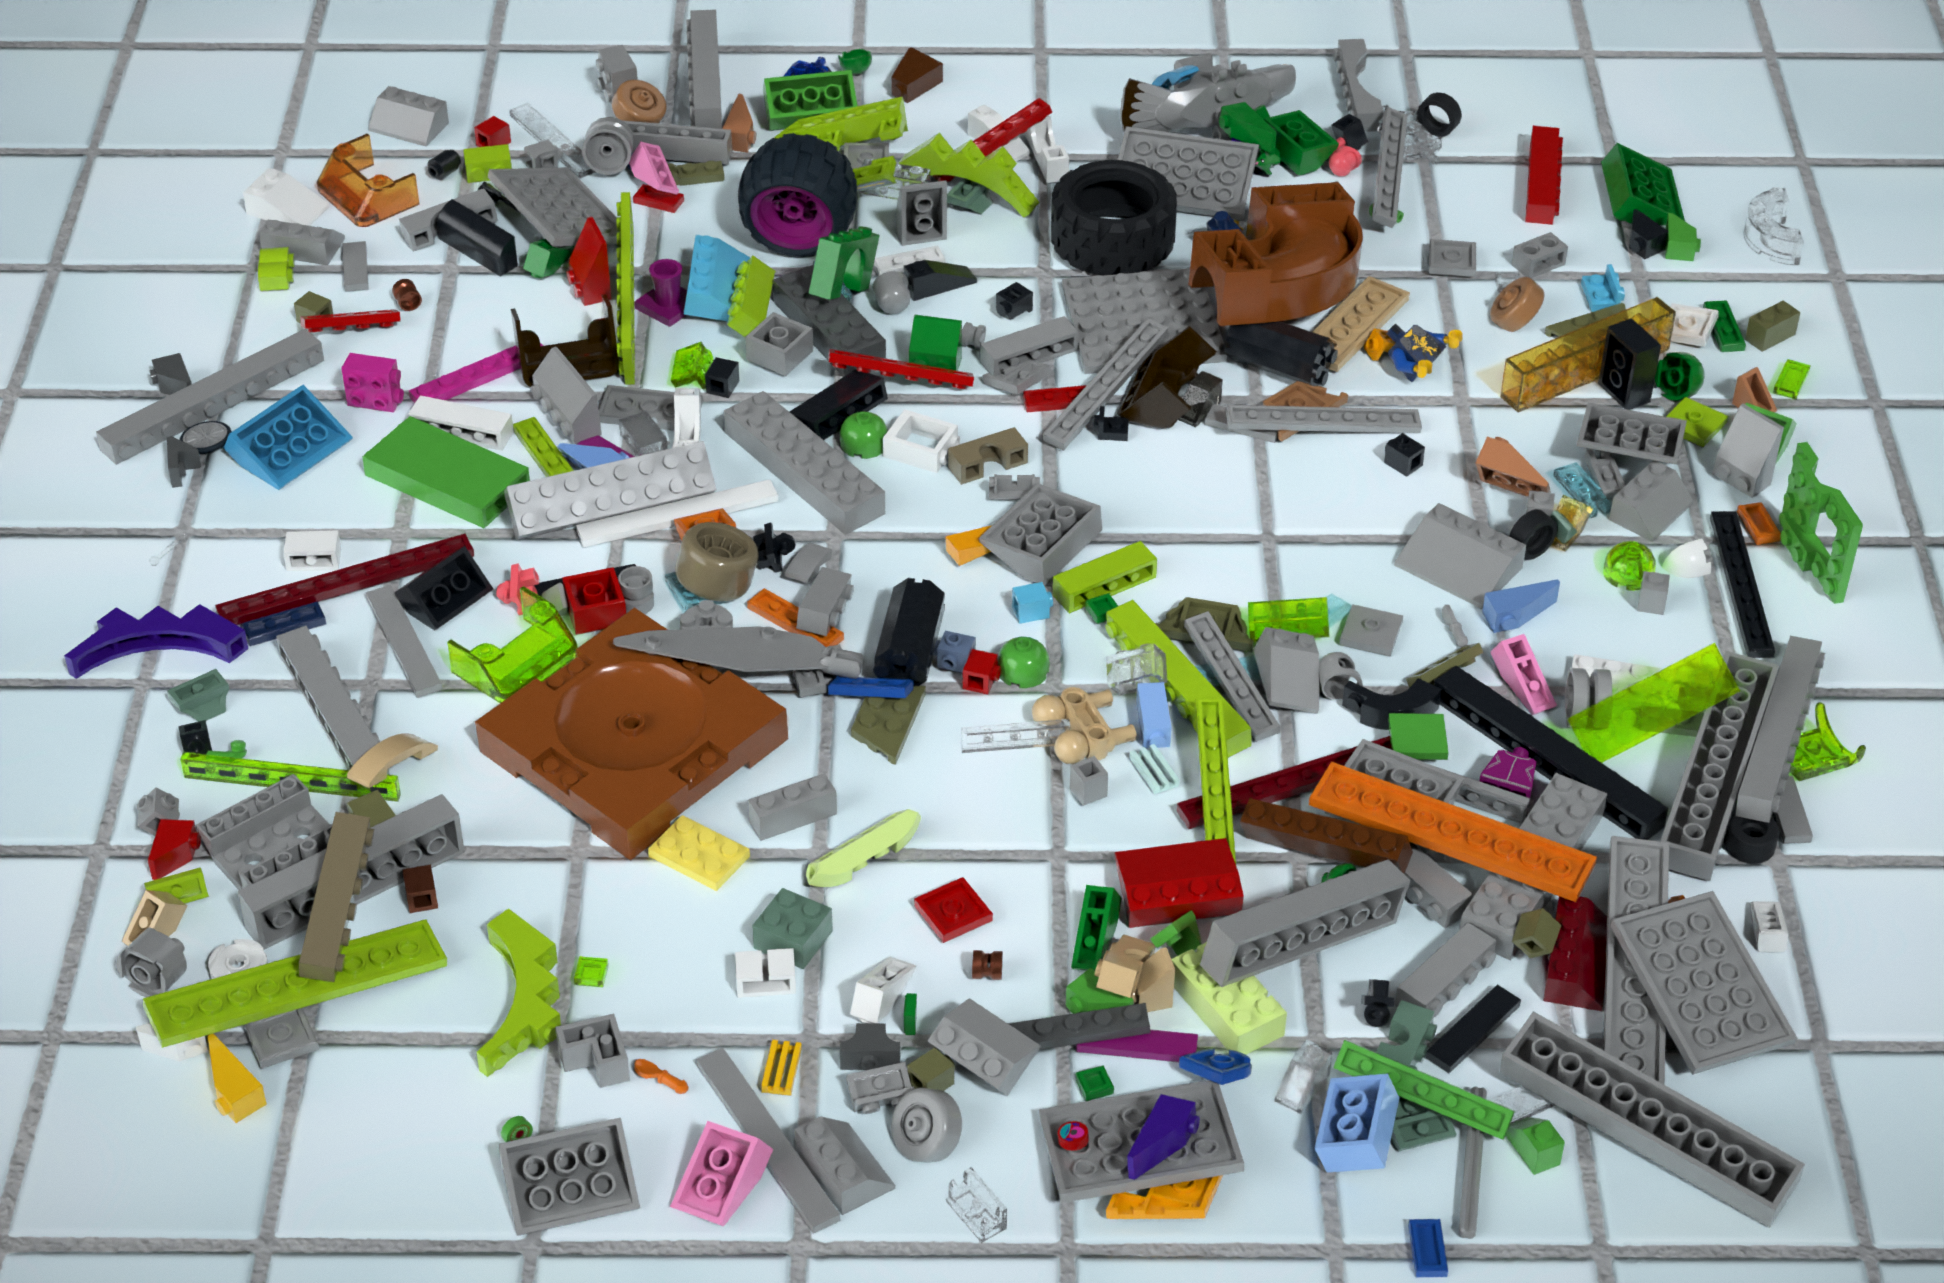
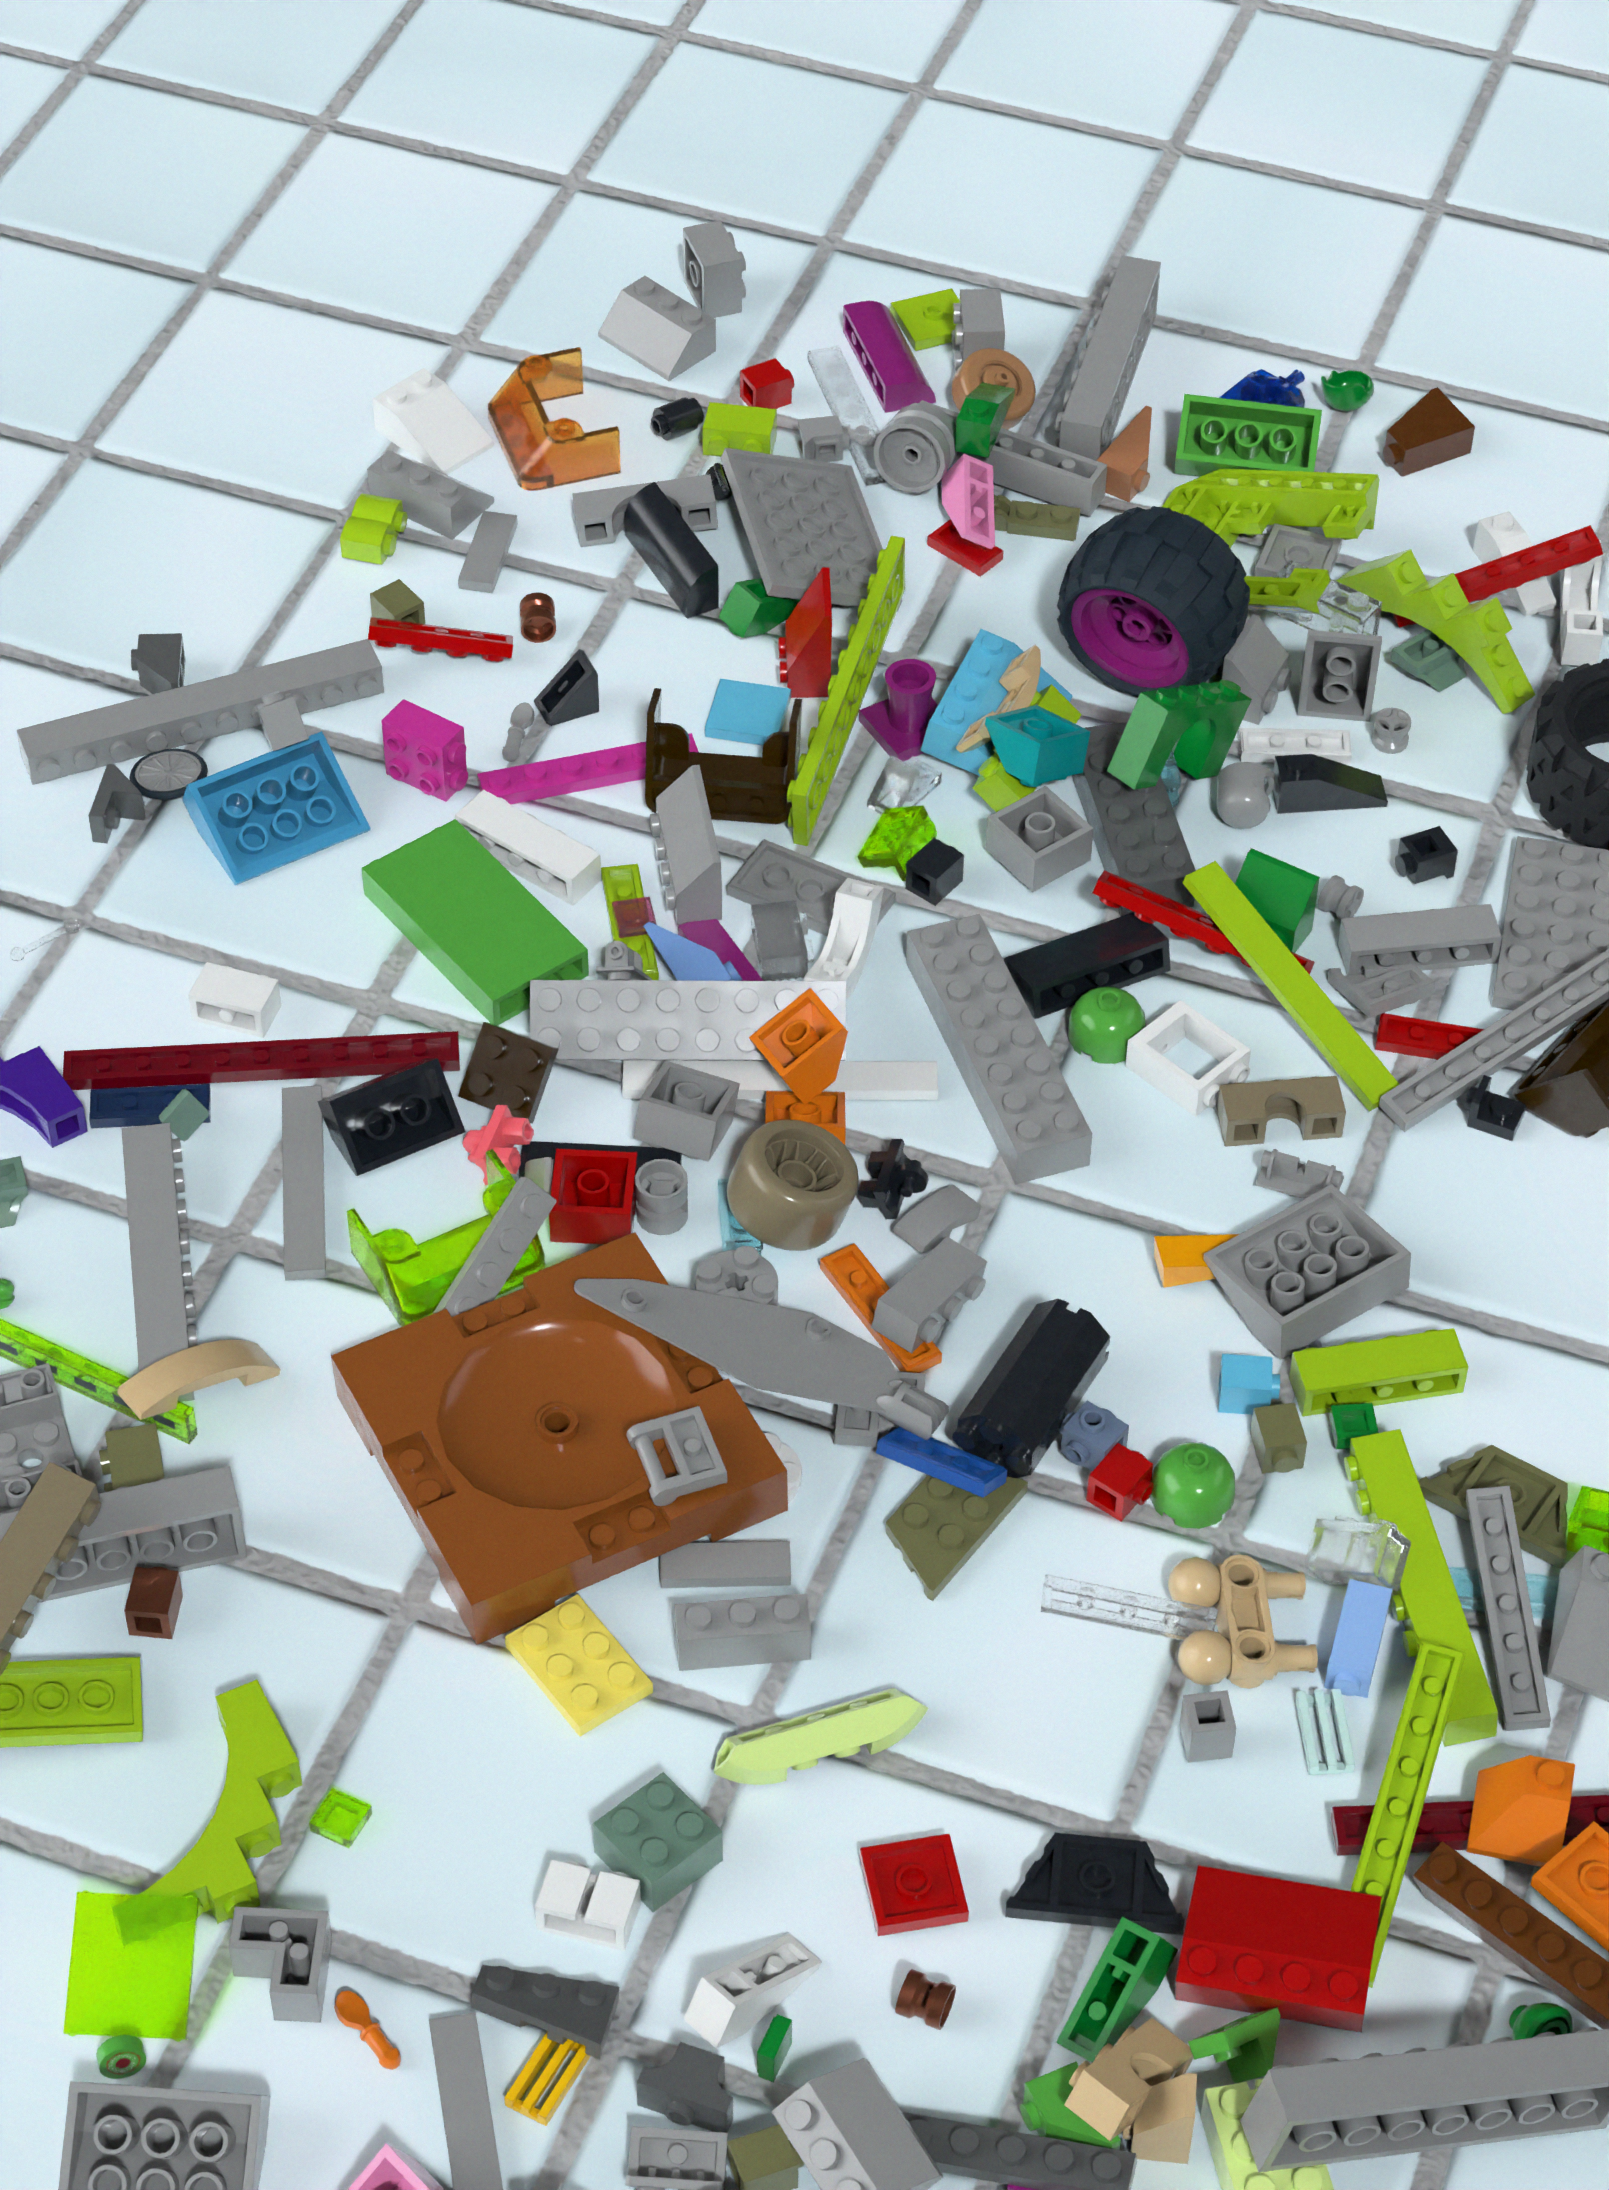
camera: 20 degrees right, 5 degrees up
(274, 383) = (281, 720): none -> light grey slope
(312, 618) = (184, 1115): none -> sand green slope
(421, 355) = (521, 718): none -> light grey piece
(430, 72) = (713, 269): none -> light grey brick
(448, 330) = (571, 692): none -> black slope
(501, 1080) = (131, 1965): none -> clear neon green piece
(508, 544) = (508, 1071): none -> dark brown plate
(546, 445) = (632, 915): none -> tile
(551, 638) = (499, 1248): none -> light grey plate
(554, 465) = (622, 963): none -> light grey hinge
(559, 102) = (885, 356): none -> magenta brick
(564, 318) = (747, 711): none -> medium azure tile
(577, 76) = (926, 318): none -> lime plate
(631, 540) = (686, 1111): none -> light grey brick
(644, 120) = (982, 418): none -> green slope
(679, 335) = (903, 784): none -> clear slope
(691, 483) = (803, 1045): none -> orange slope
(724, 710) = (691, 1451): none -> light grey plate
(734, 259) = (1021, 683): none -> tan slope
(761, 289) = (1038, 744): none -> teal slope
(765, 777) = (727, 1565): none -> light grey tile
(774, 1028) = (556, 2004): none -> dark grey wing
(872, 215) = (1259, 667): none -> light grey slope
(963, 239) = (1391, 730): none -> light grey wheel
(965, 384) = (1291, 984): none -> lime tile
(1057, 880) = (1096, 1885): none -> black wing
(1062, 625) = (1278, 1438): none -> olive brick
(1286, 772) = (1521, 1810): none -> orange slope

